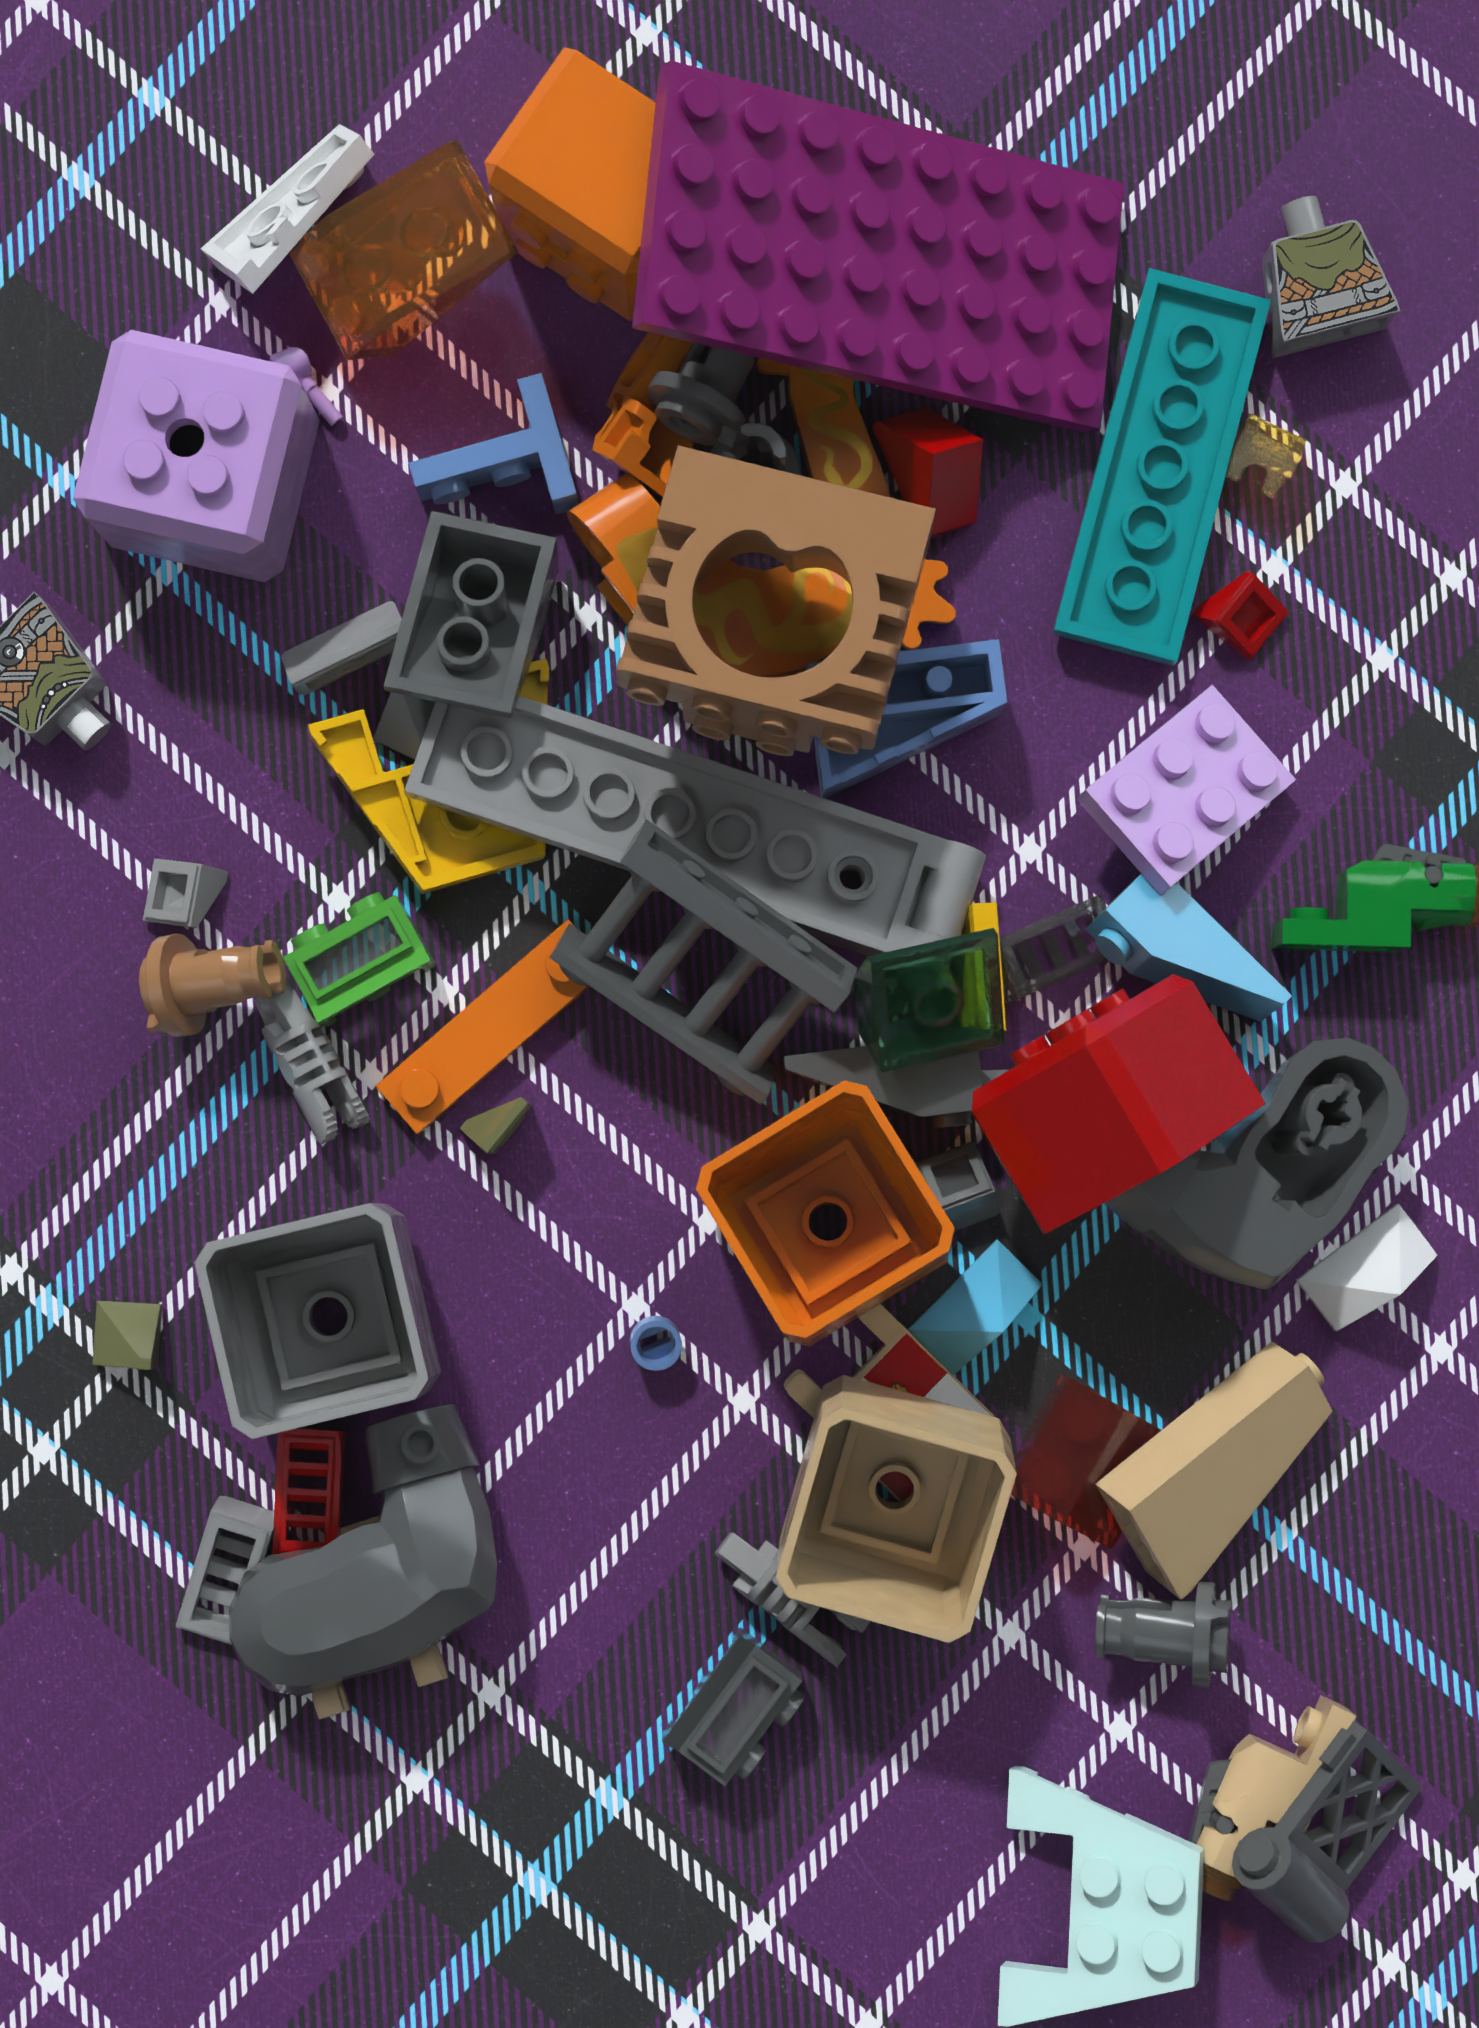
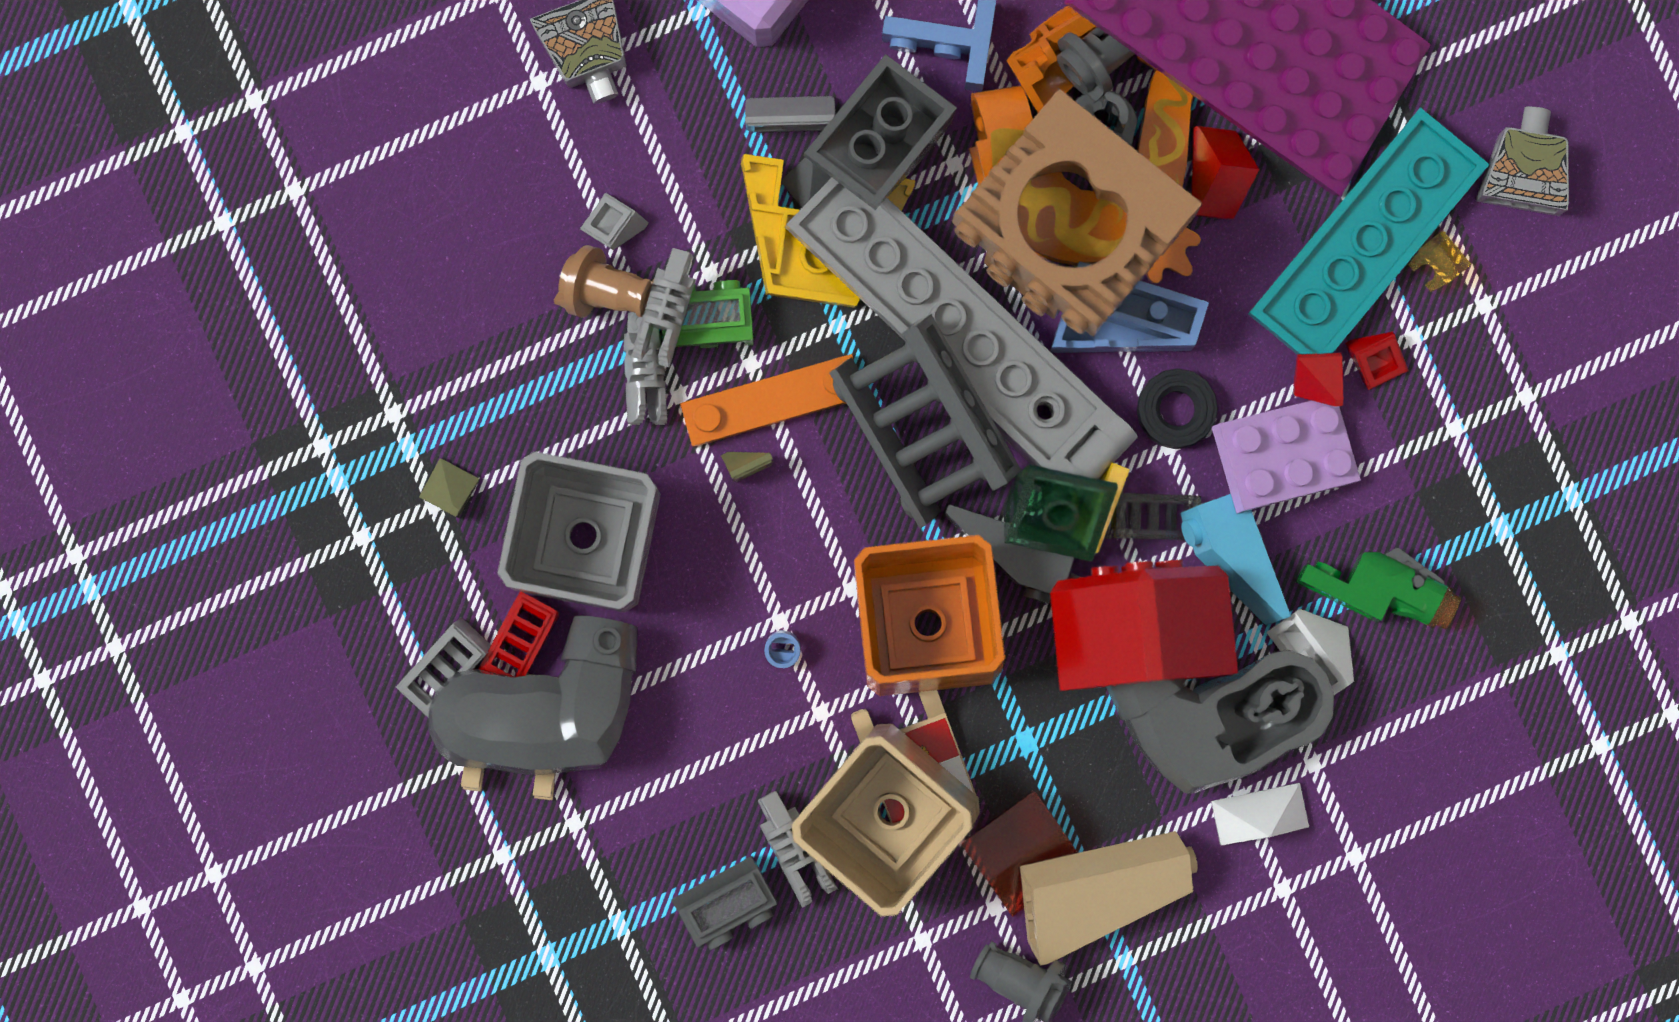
camera: 30 degrees right, 0 degrees up
(297, 969) = (666, 306): none -> light grey hinge
(961, 1185) = (1023, 640): dark grey slope -> none
(976, 1307) = (996, 722): medium azure slope -> none
(1028, 759) = (1177, 381): none -> black tyre
(1184, 672) = (1319, 378): none -> red slope
(1339, 1010) = (1319, 639): none -> white slope

